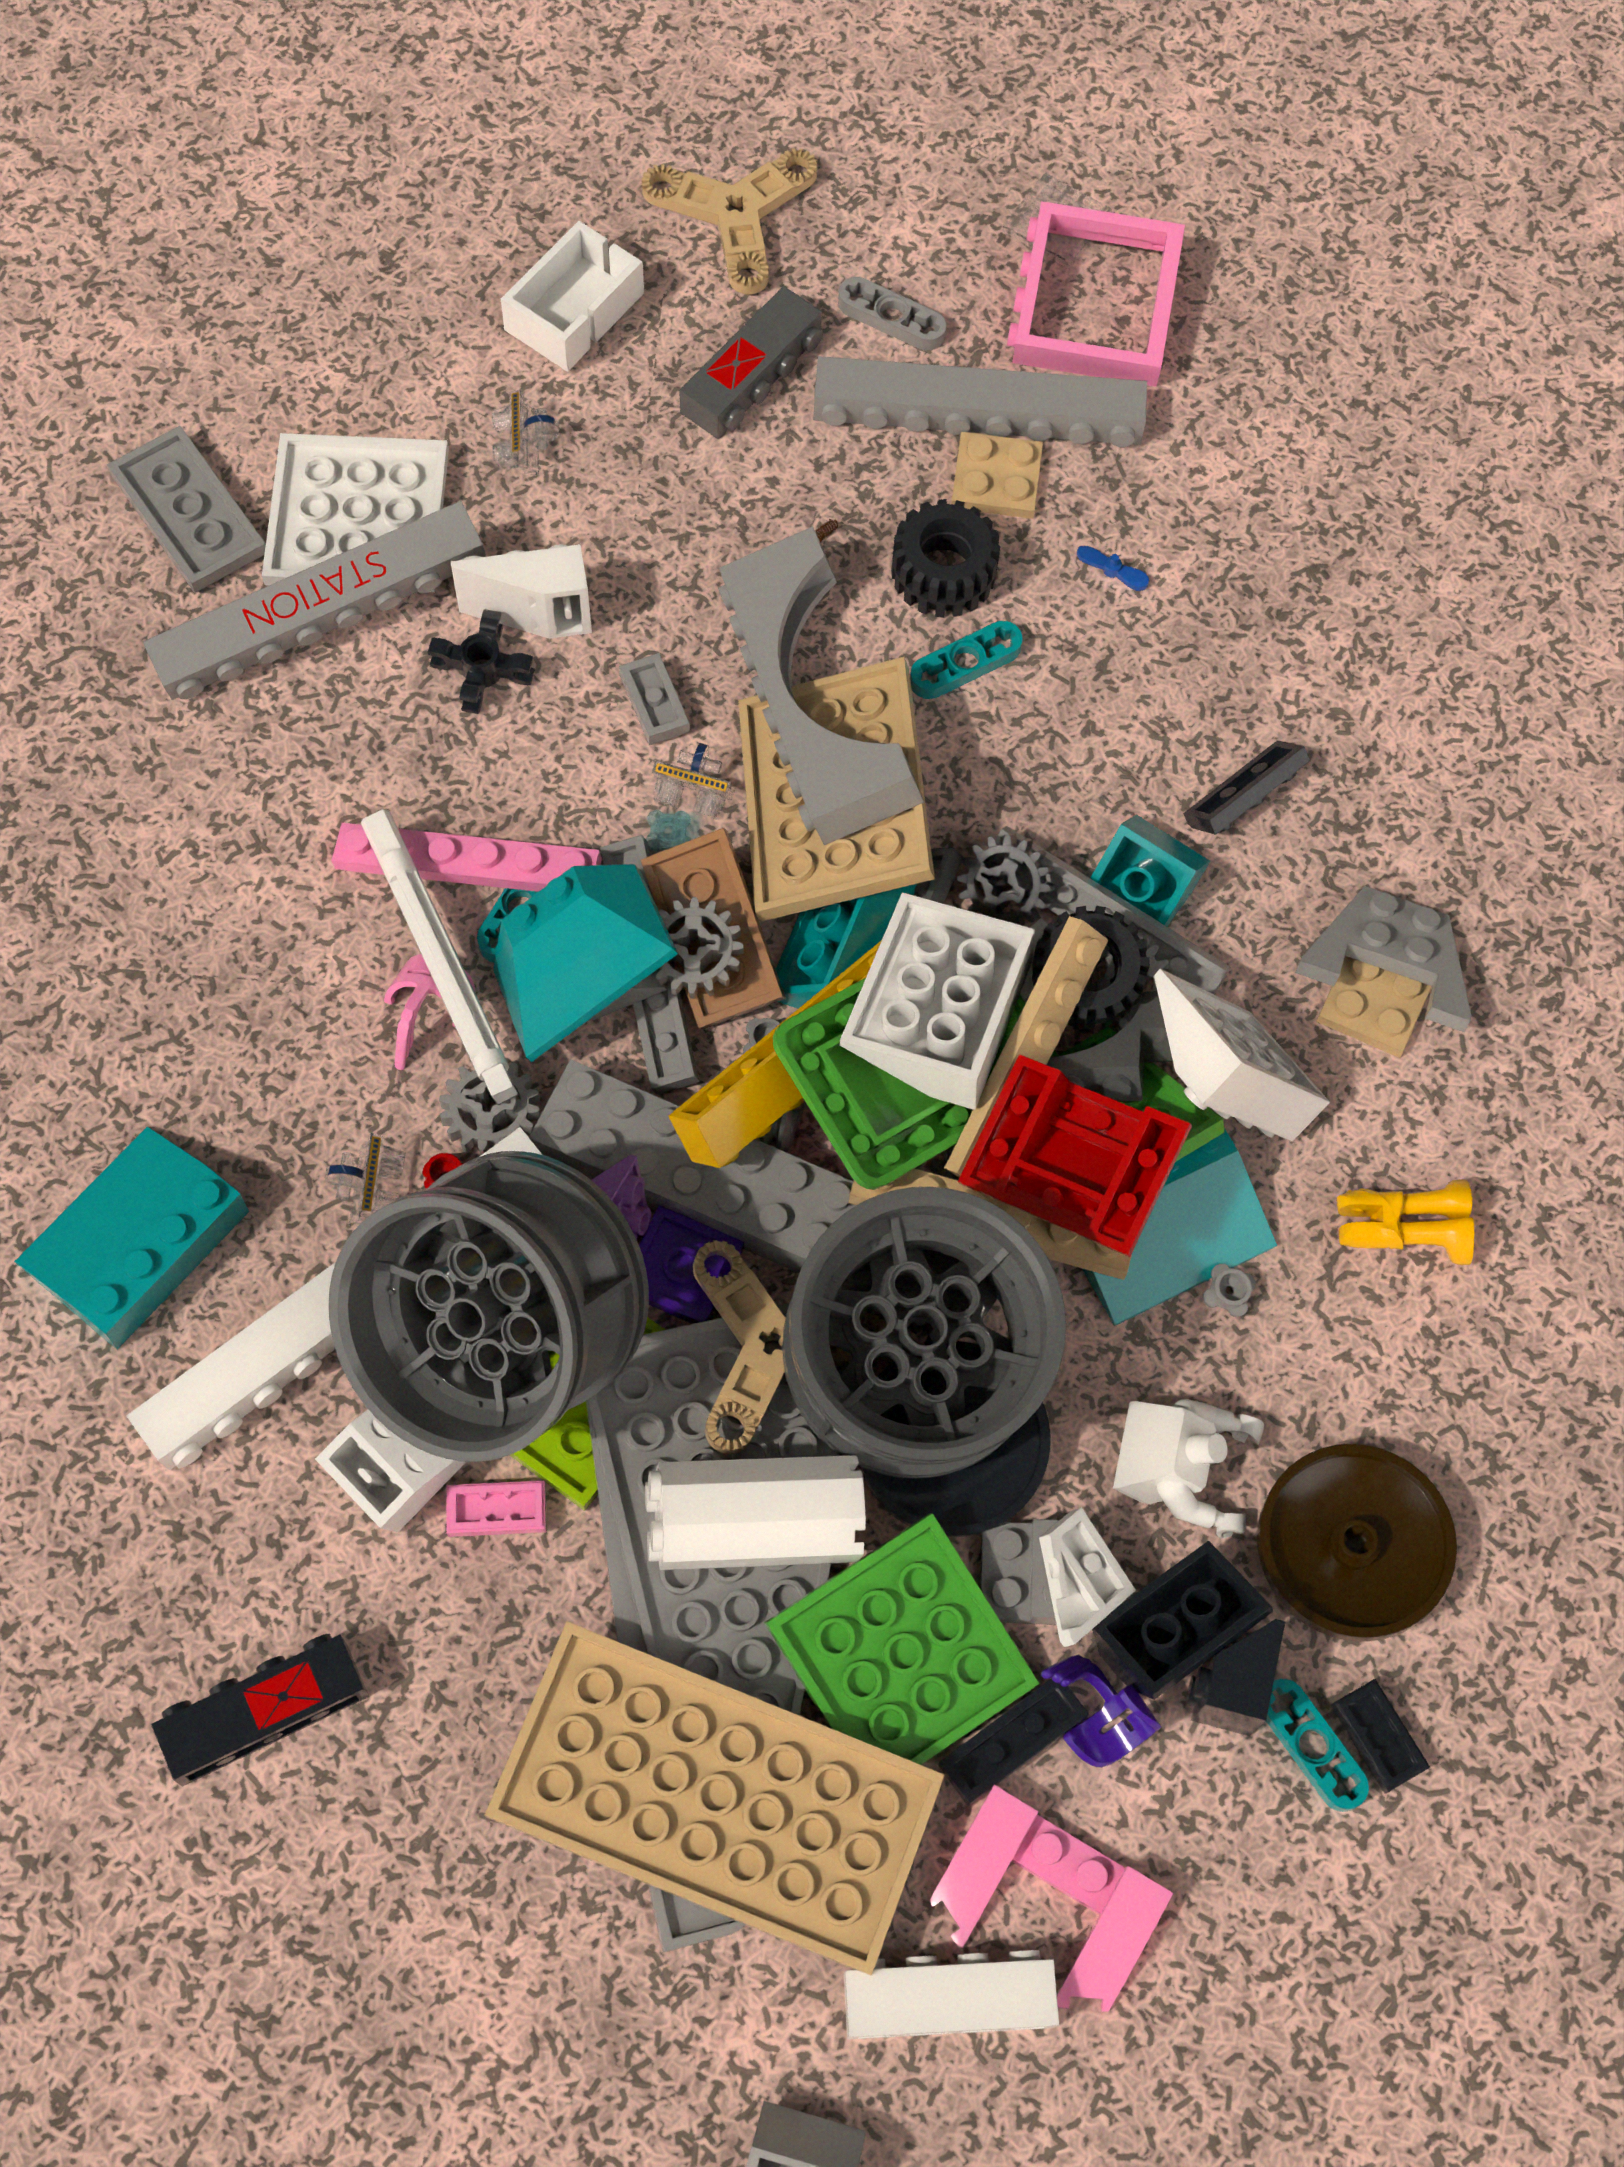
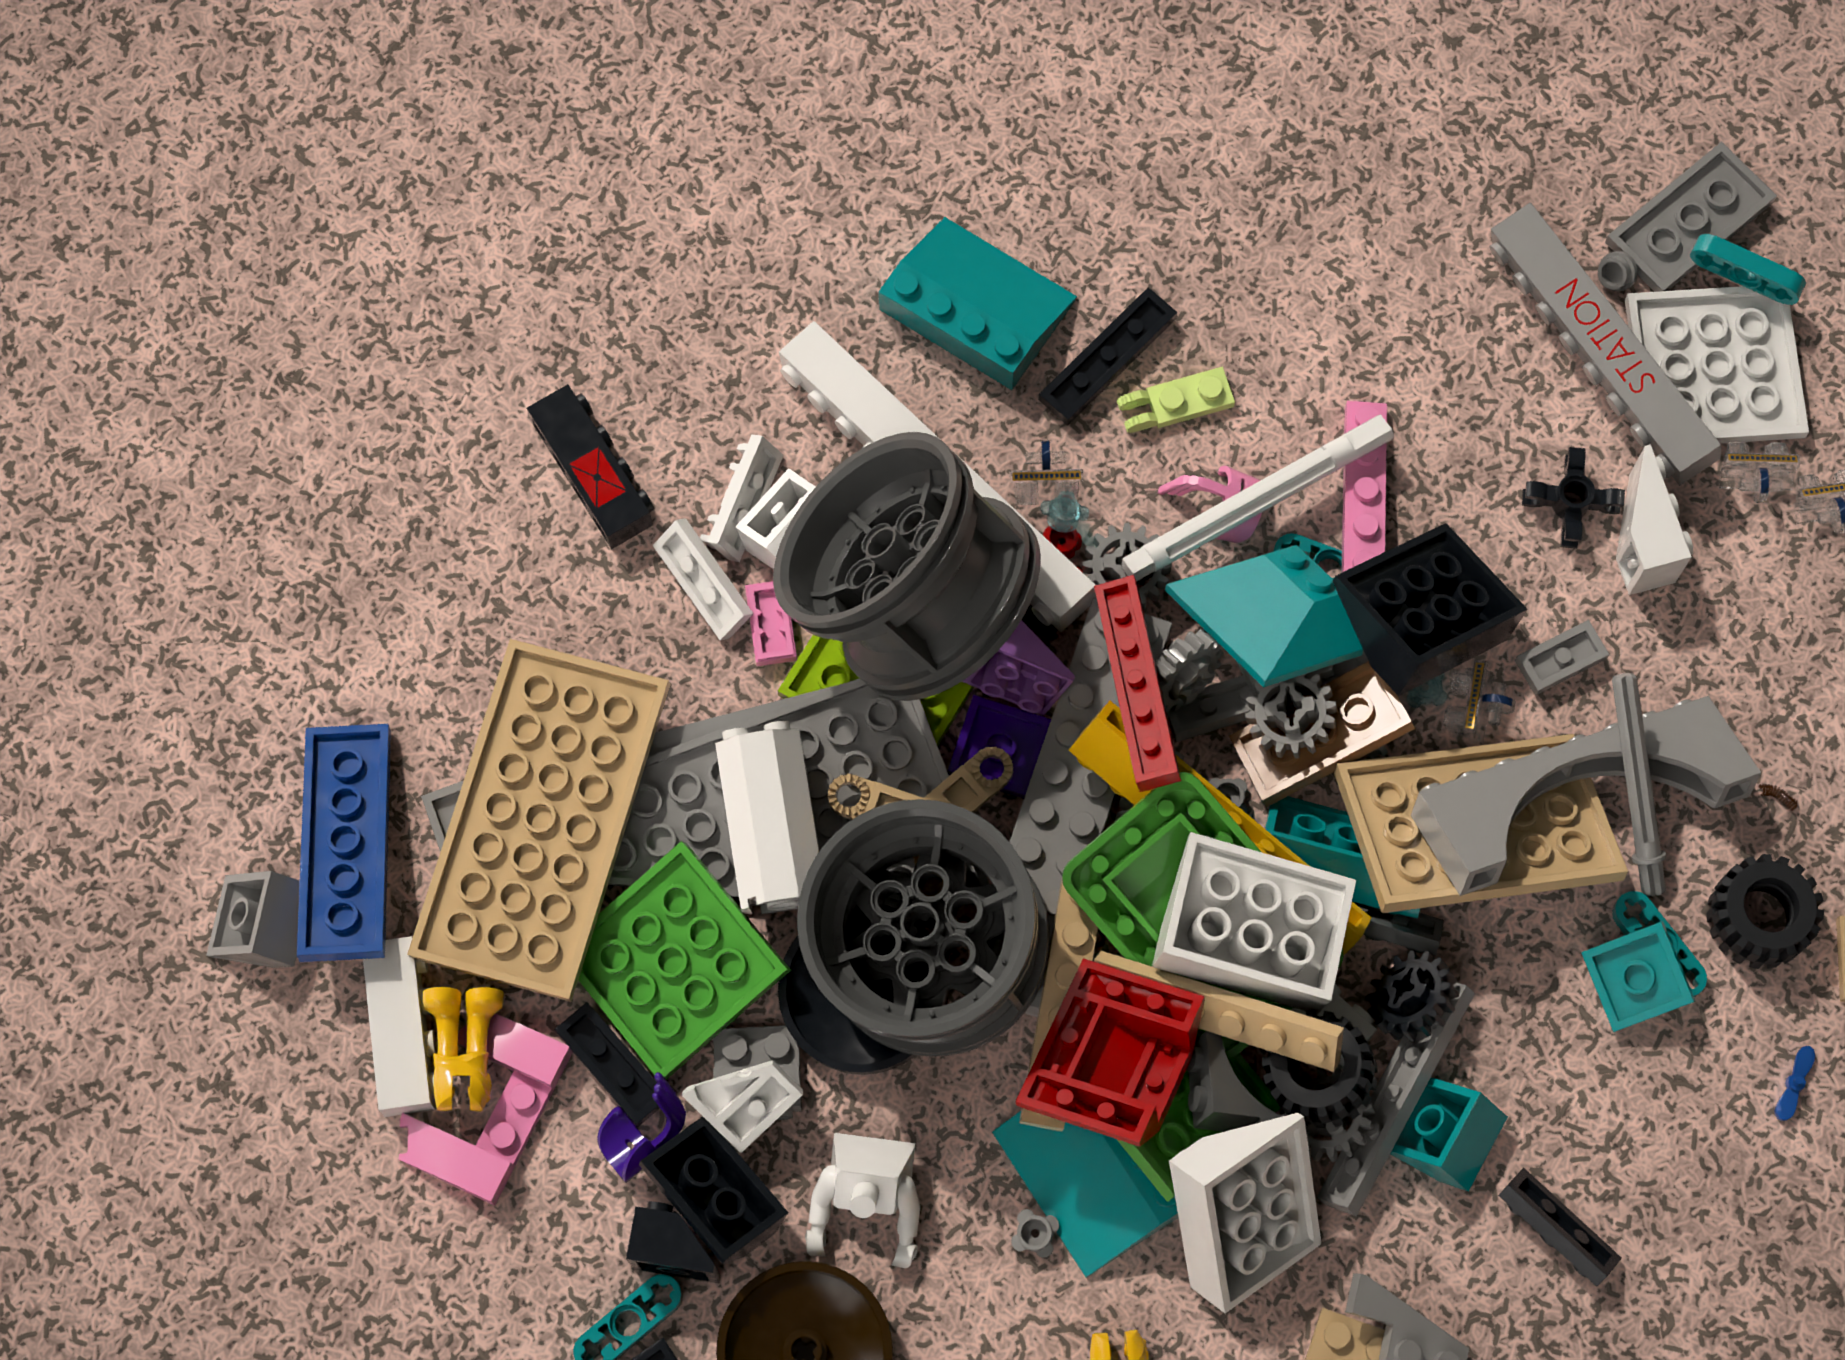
camera: 90 degrees right, 5 degrees up
(230, 1099) = (1107, 356): none -> black plate
(232, 582) = (1617, 271): none -> light grey plate
(261, 458) = (1748, 269): none -> teal beam
(296, 1030) = (1179, 400): none -> yellowish green hinge
(333, 1526) = (748, 485): none -> white plate
(423, 1168) = (1064, 512): none -> clear light blue plate
(430, 1583) = (702, 579): none -> white plate
(483, 488) = (1758, 471): none -> clear hips
(595, 801) = (1426, 608): none -> black slope
(633, 1049) = (1187, 668): none -> light grey gear
(655, 1081) = (1137, 684): none -> plate
(715, 2053) = (344, 843): none -> blue plate
(809, 633) = (1639, 786): none -> light grey axle
(1001, 677) = (1638, 976): none -> teal plate
(1008, 1902) = (445, 1006): none -> yellow piece

